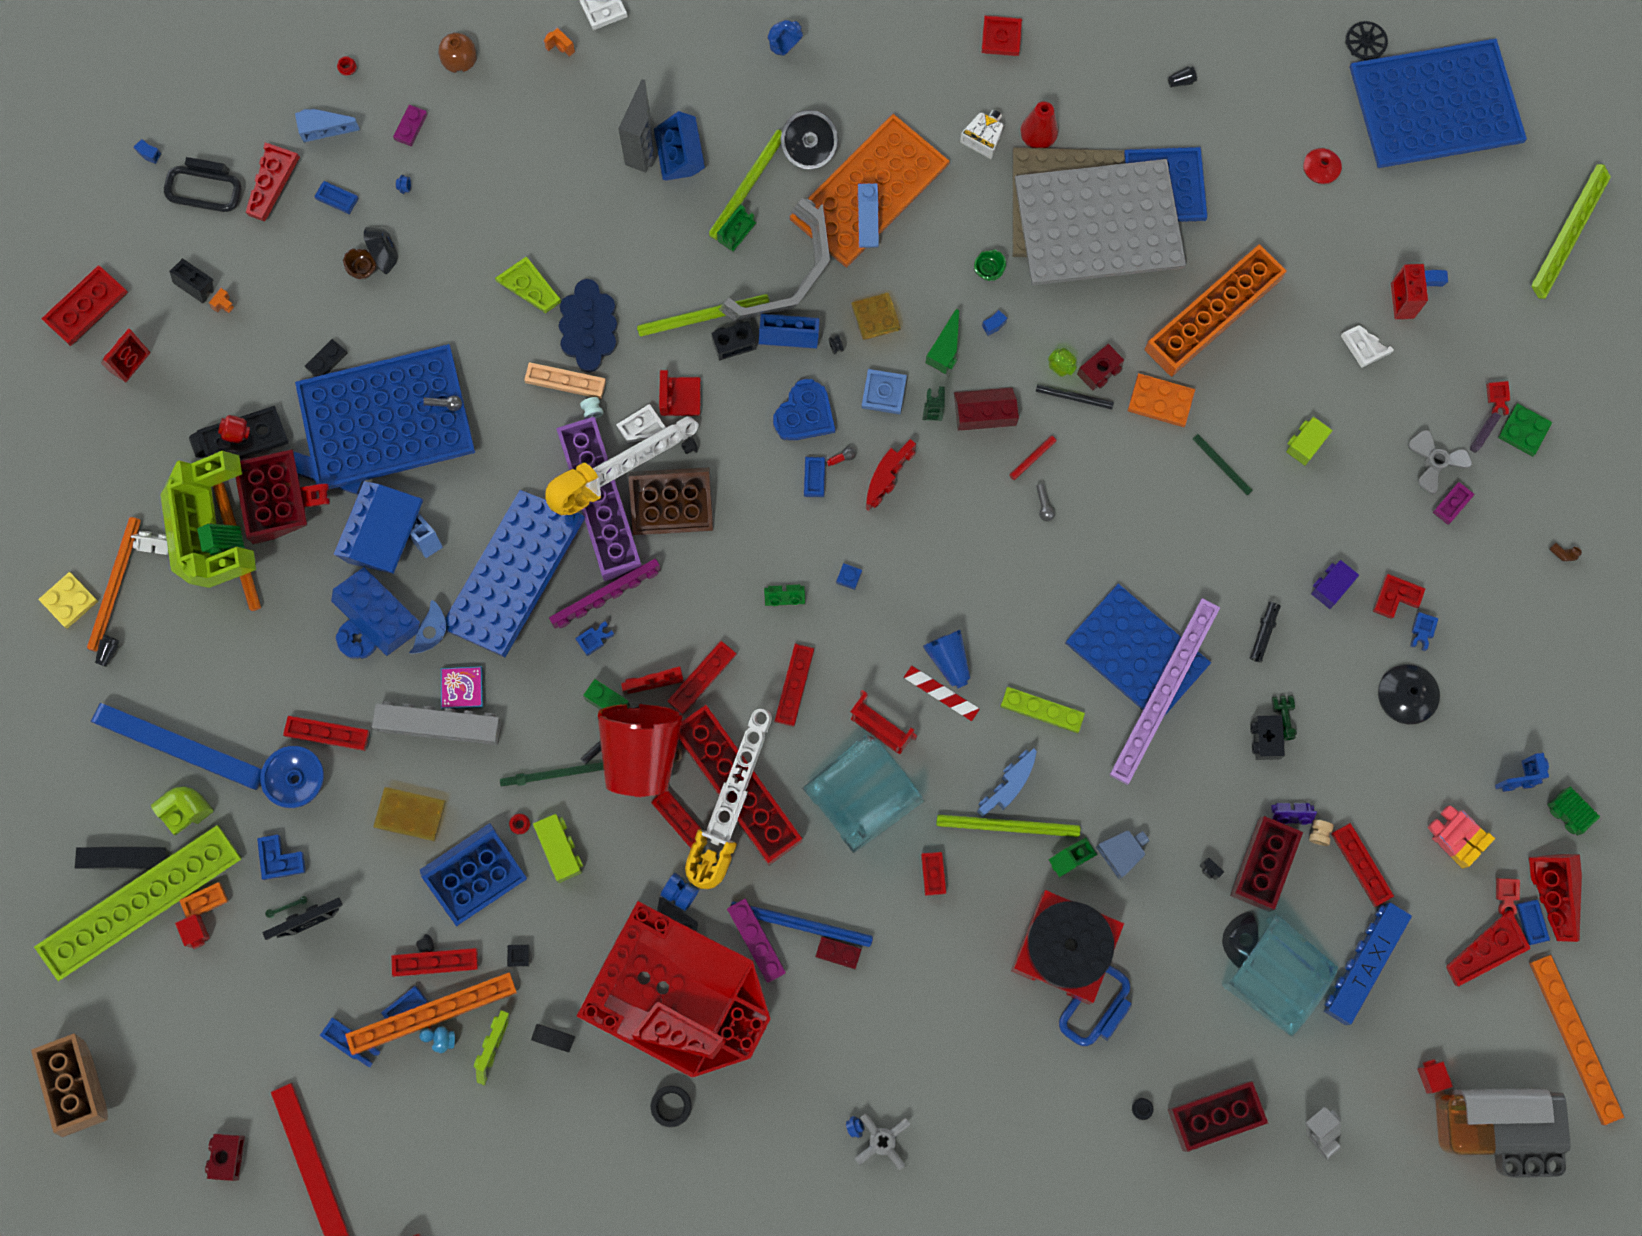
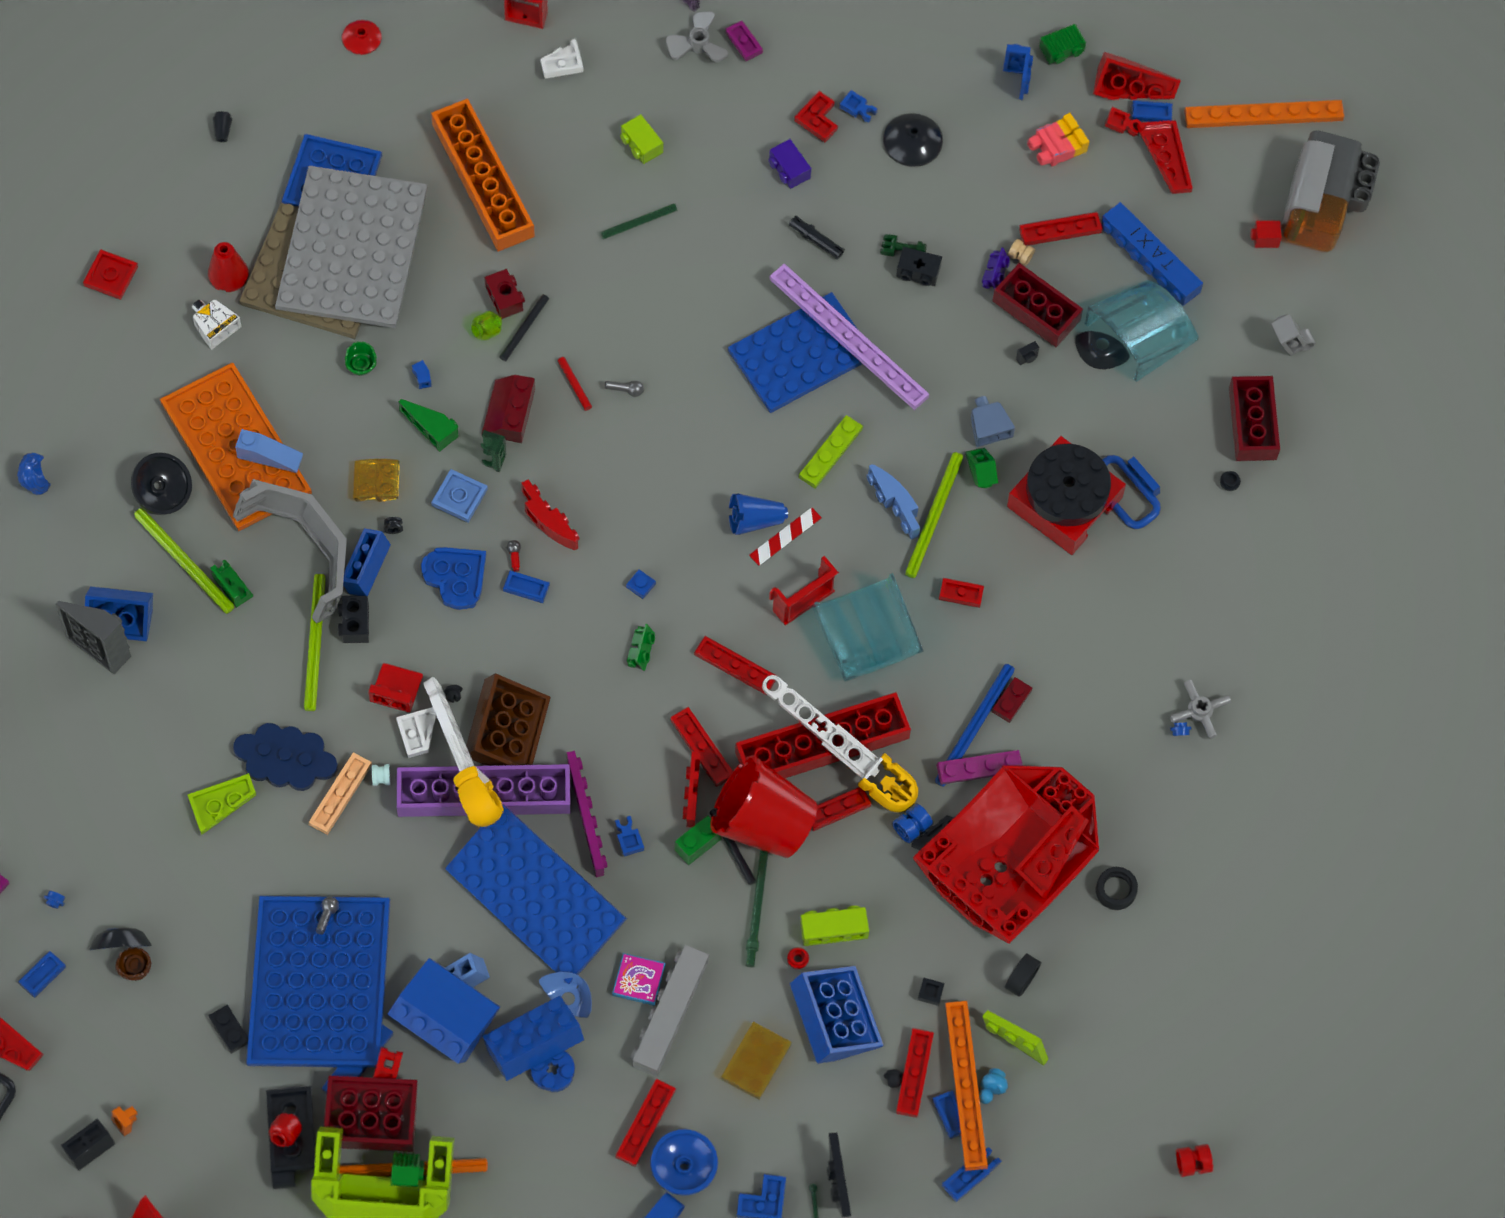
camera: 75 degrees left, 10 degrees down
(1161, 400) = (554, 253): orange plate -> none

